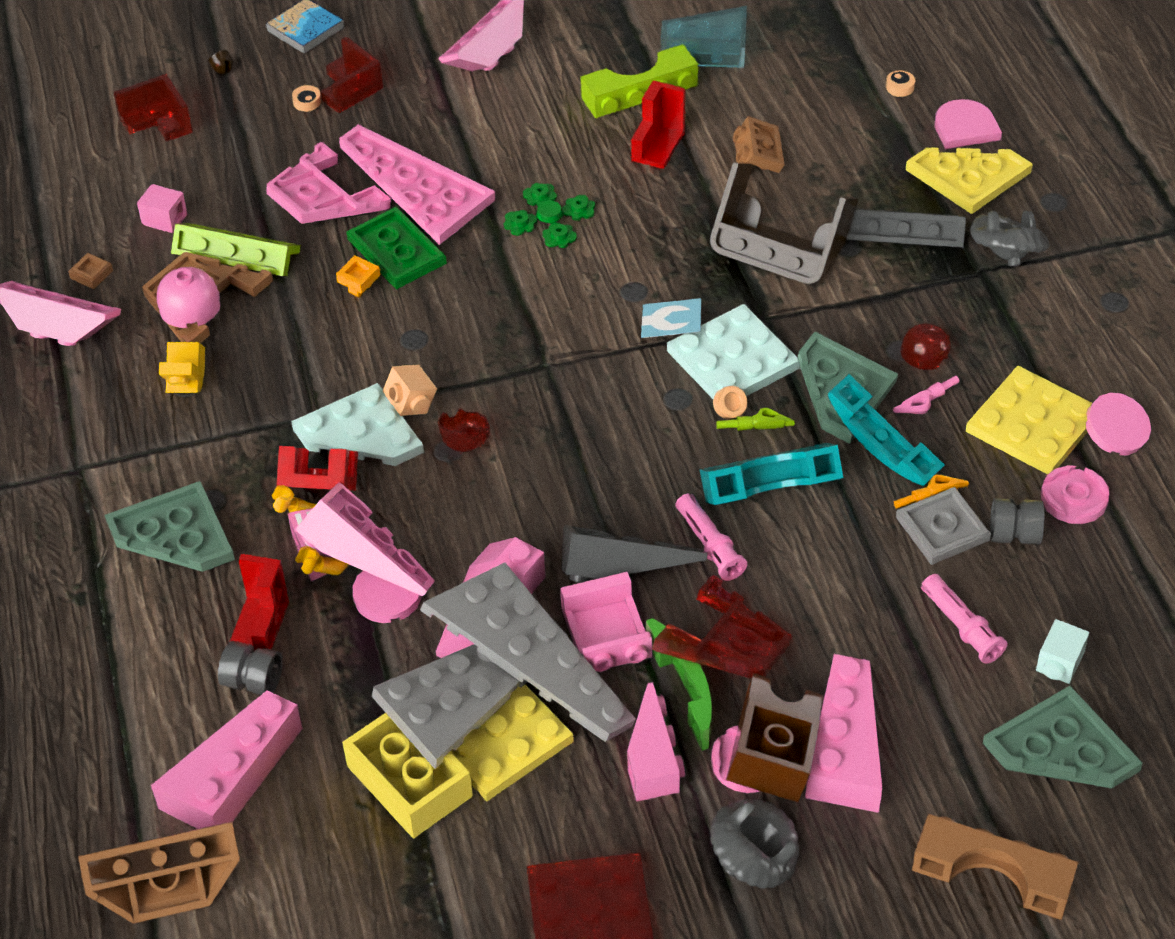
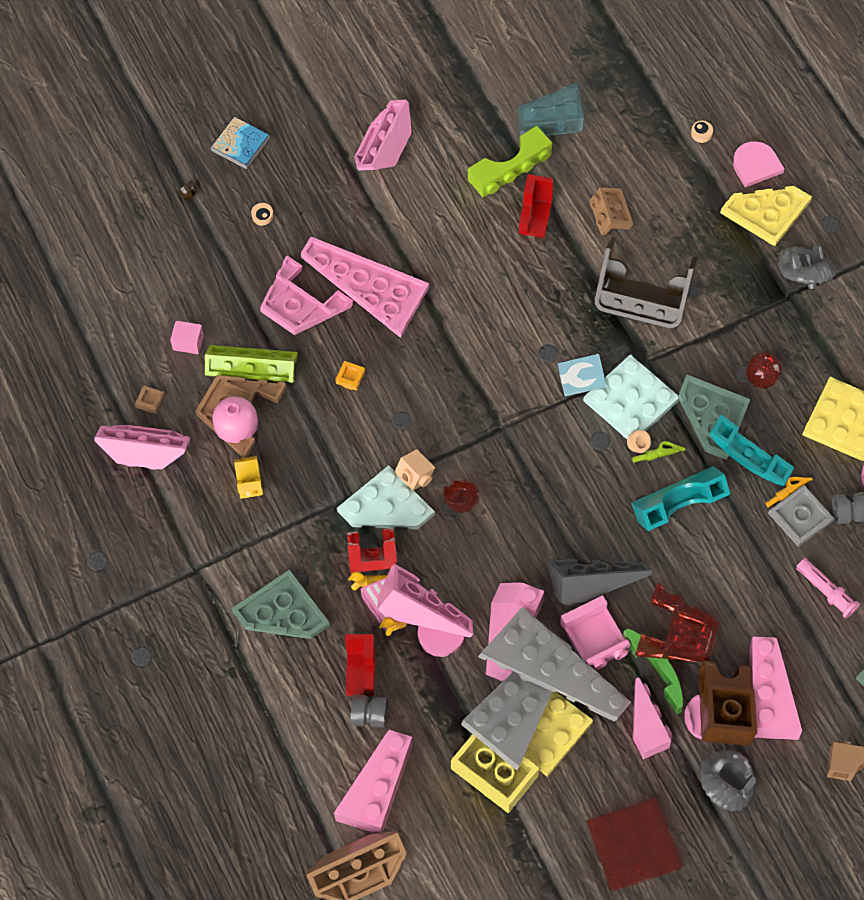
camera: 10 degrees left, 15 degrees up
(153, 104) = (149, 241): clear red panel -> none
(355, 75) = (296, 190): clear red panel -> none
(396, 247) = (368, 342): green tile -> none
(549, 212) = (471, 293): green plant -> none
(715, 544) = (655, 560): bright pink pin -> none
(907, 228) = (731, 266): dark grey fence -> none
(921, 402) = (770, 413): bright pink hand -> none

